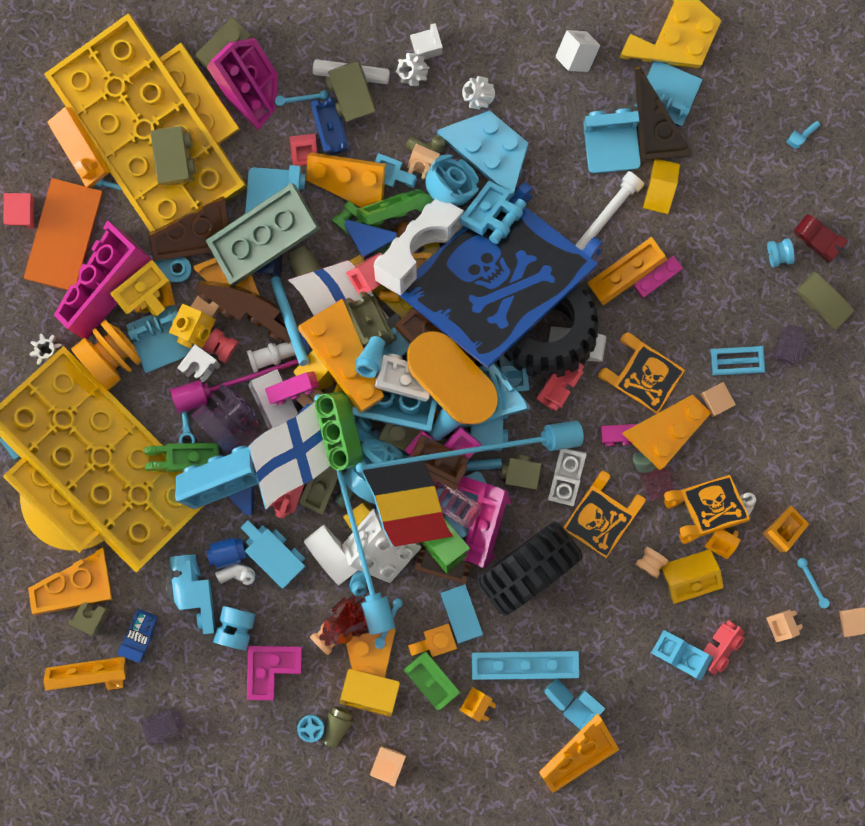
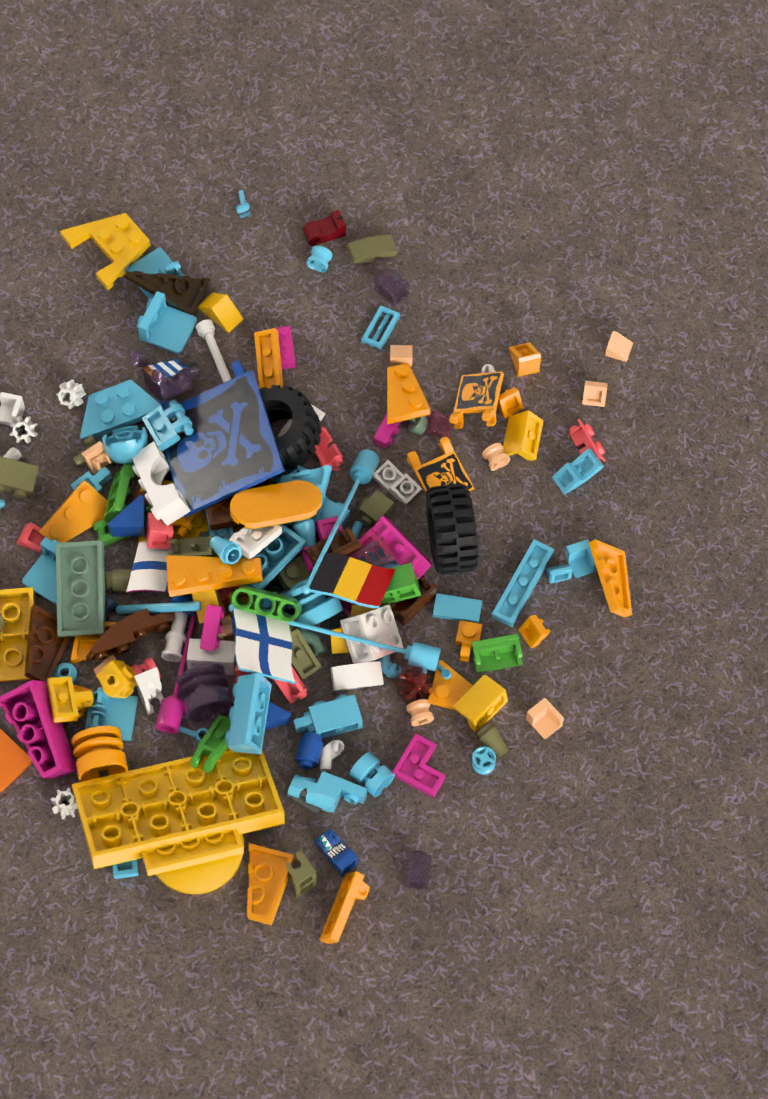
camera: 55 degrees left, 20 degrees down
(330, 127) = (27, 510): blue hinge -> none
(549, 177) = (166, 377): none -> clear purple torso
(577, 51) = (84, 315): white panel -> none
(646, 376) = (353, 392): flag -> none
(823, 602) = (593, 361): medium azure hinge -> none

